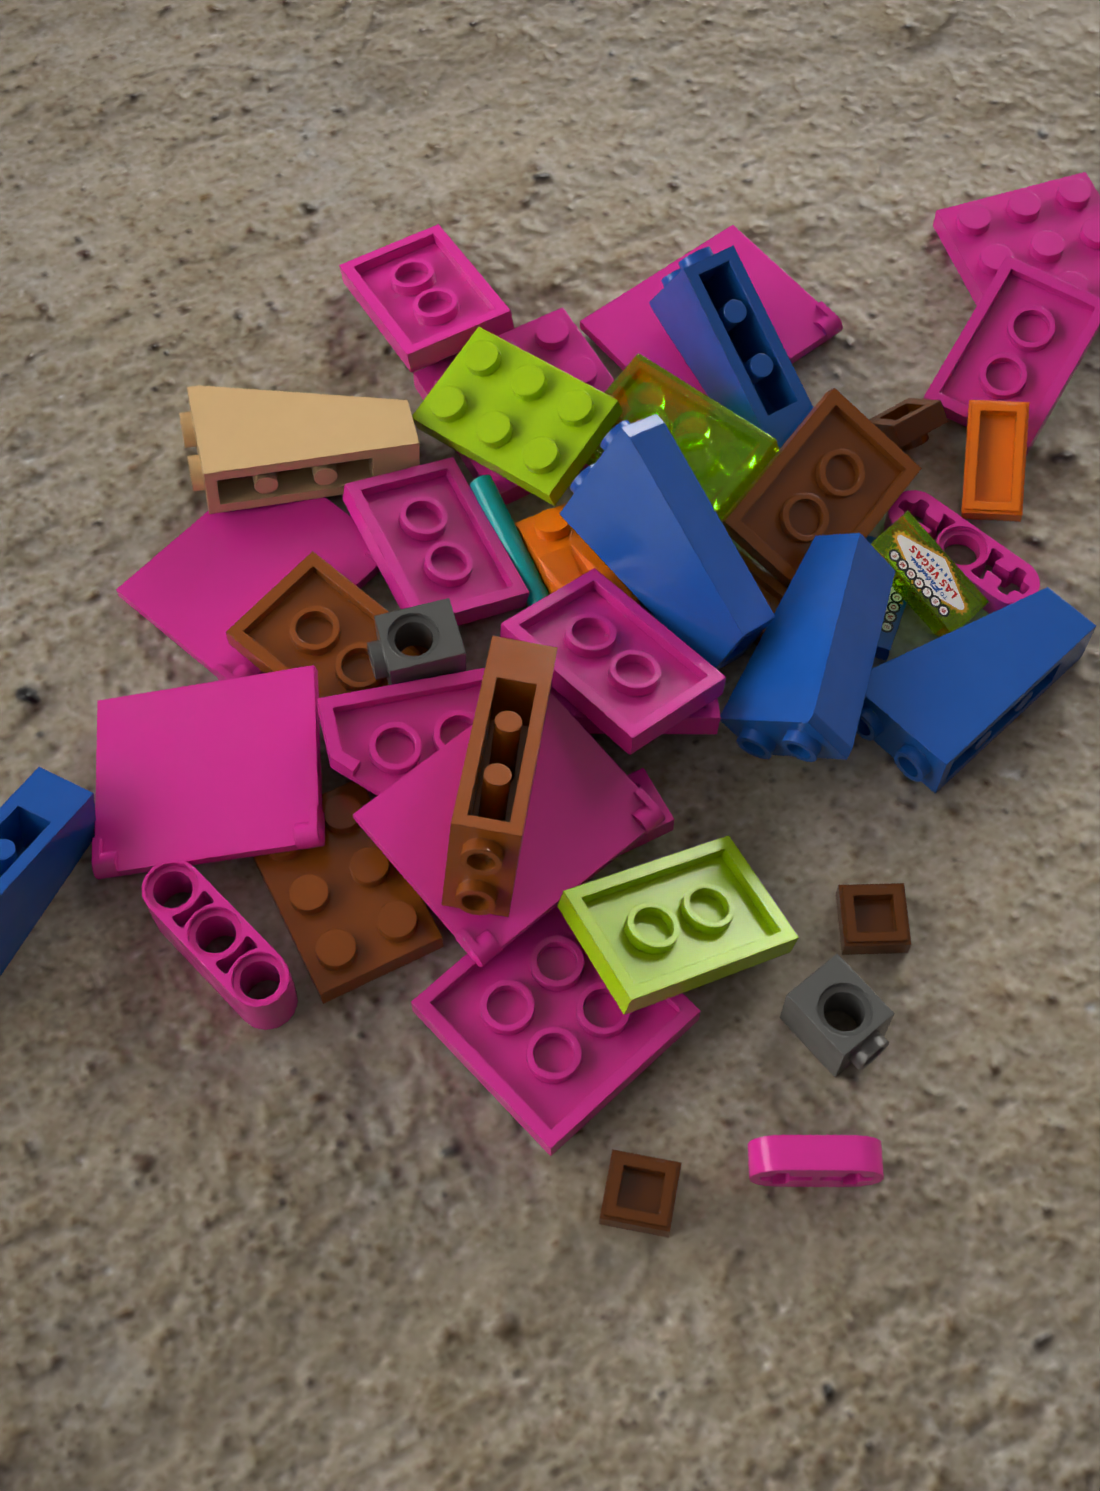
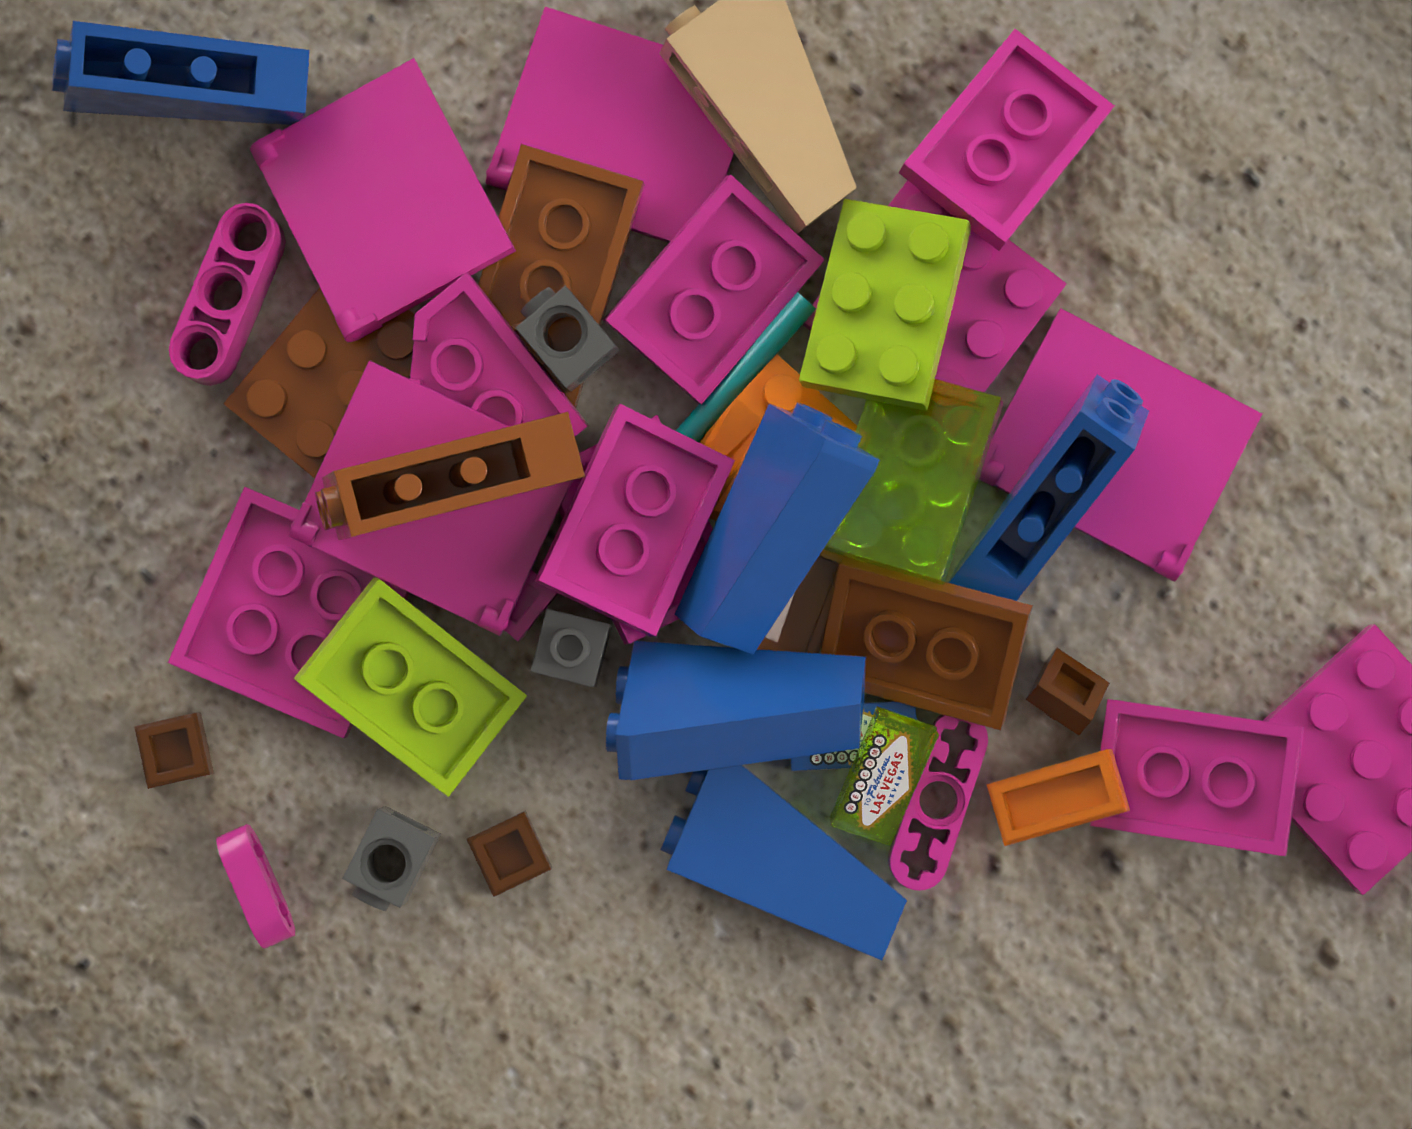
camera: 65 degrees right, 25 degrees up
(701, 775) = (571, 648): none -> dark grey brick

